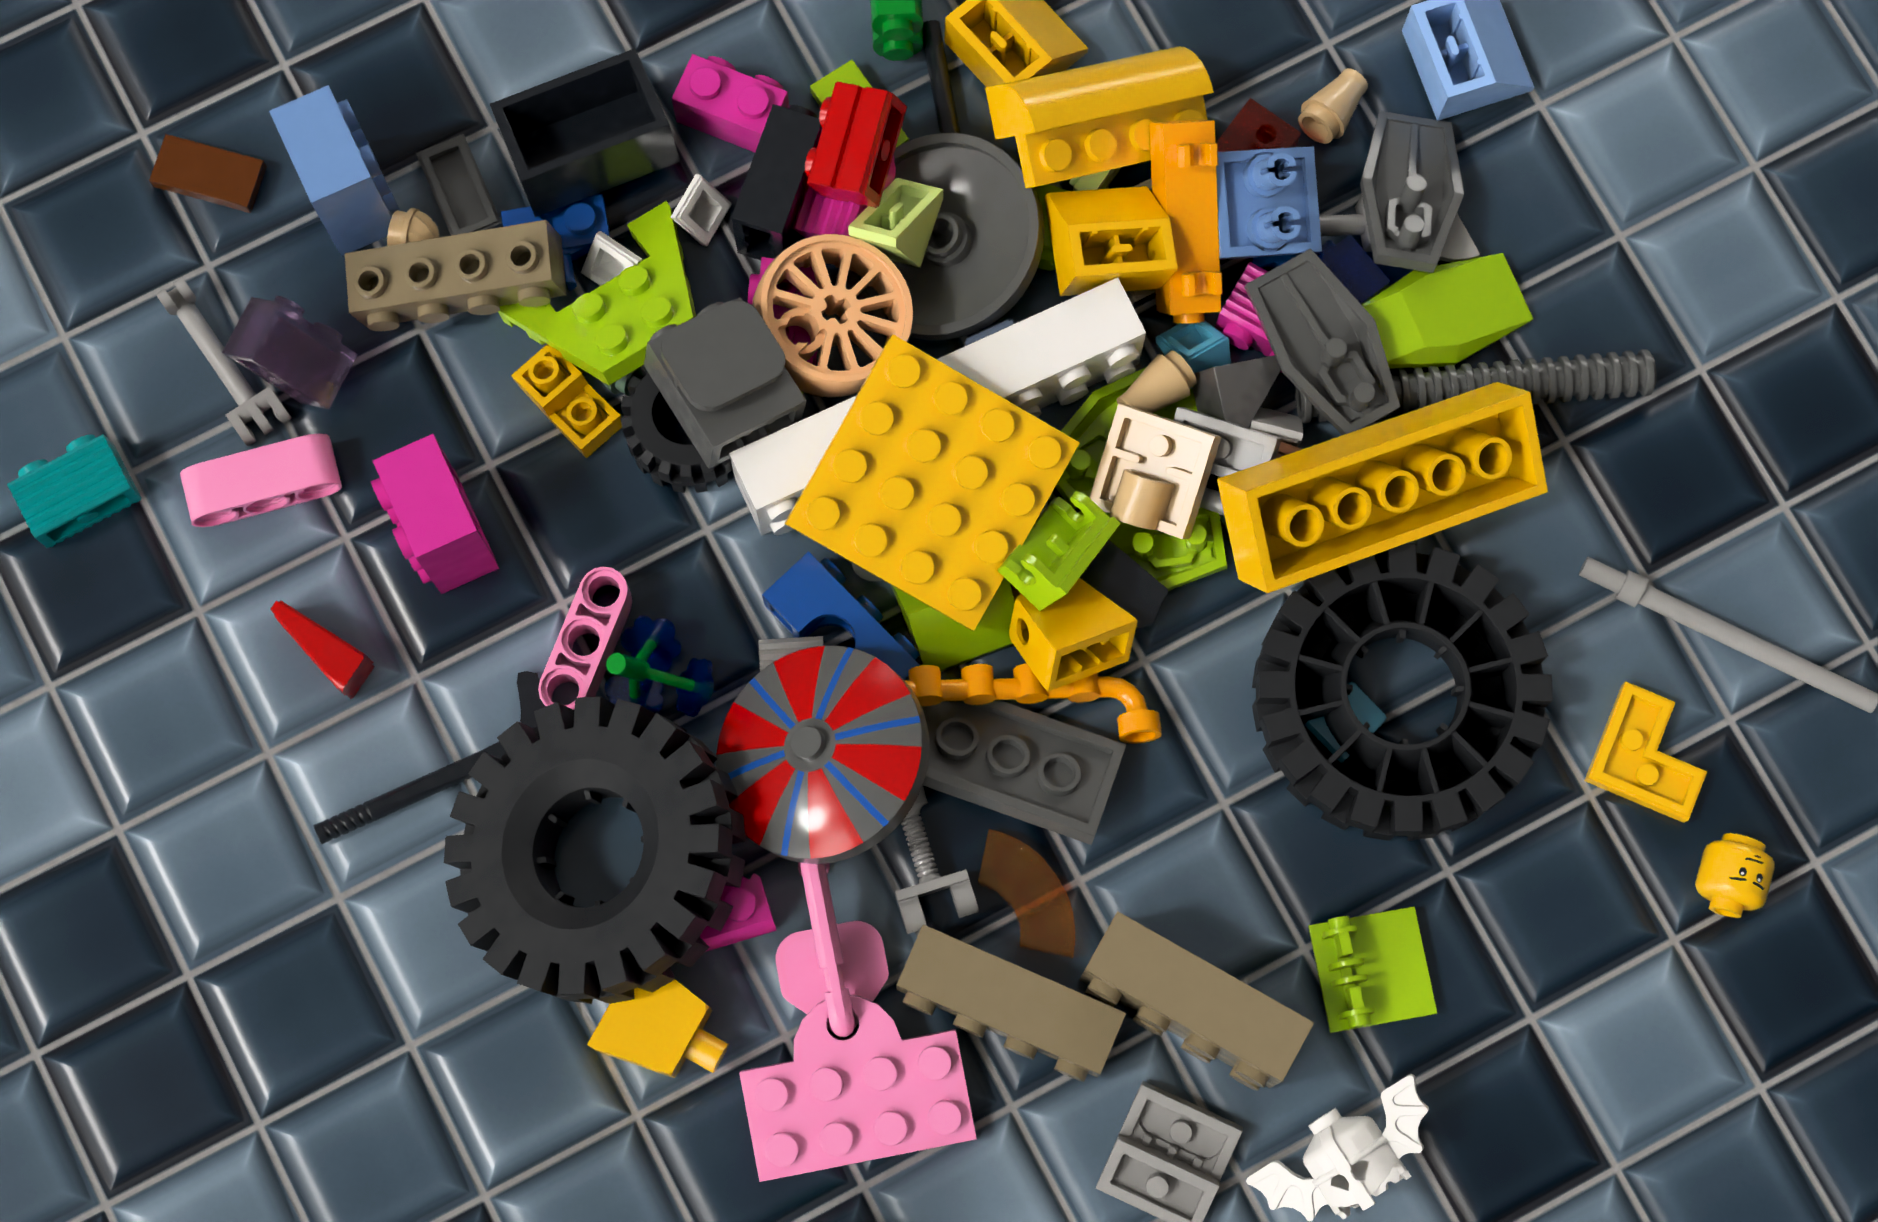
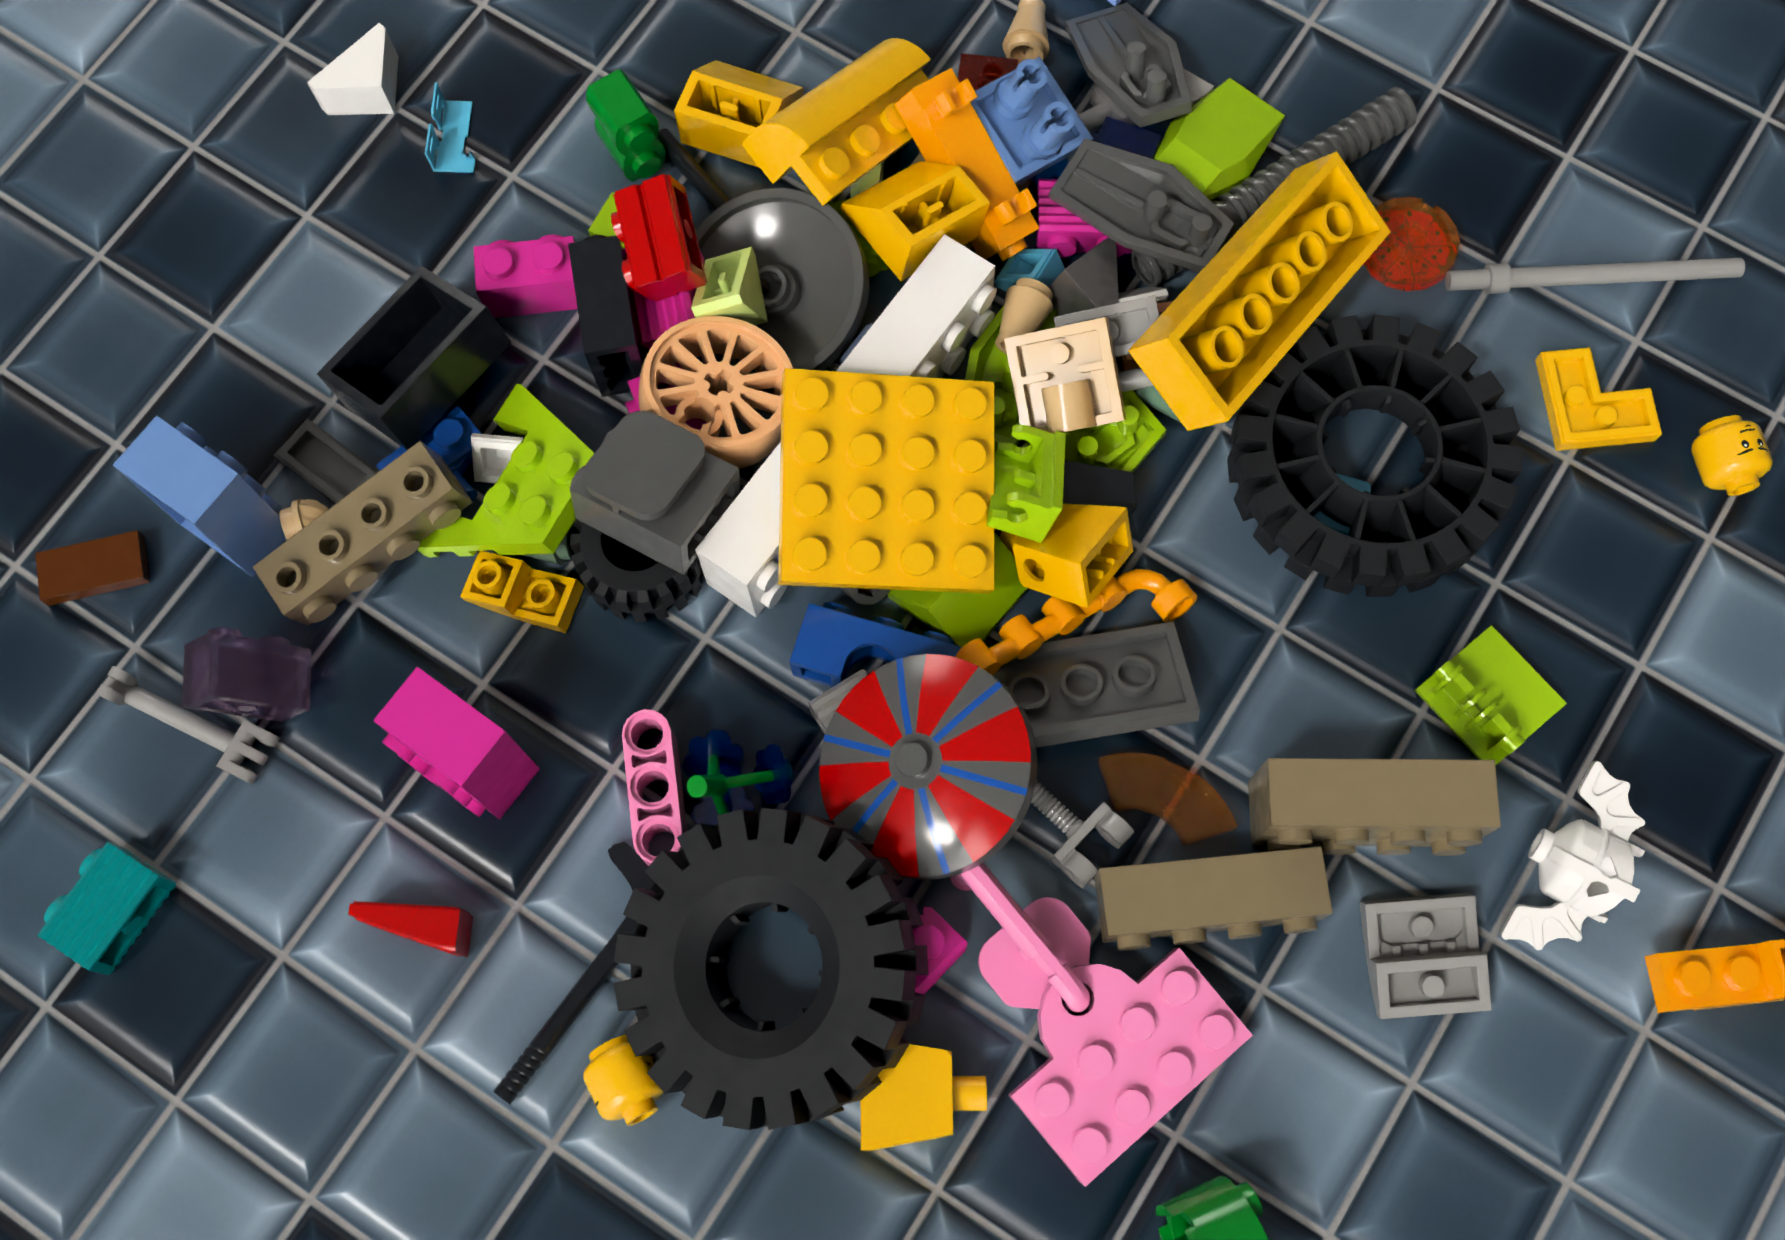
camera: 25 degrees left, 5 degrees down
(260, 480) = (278, 806): bright pink beam -> none
(420, 878) = (621, 1082): none -> yellow head
(701, 210) = (551, 374): white slope -> none
(1577, 512) = (1417, 248): none -> clear orange tile

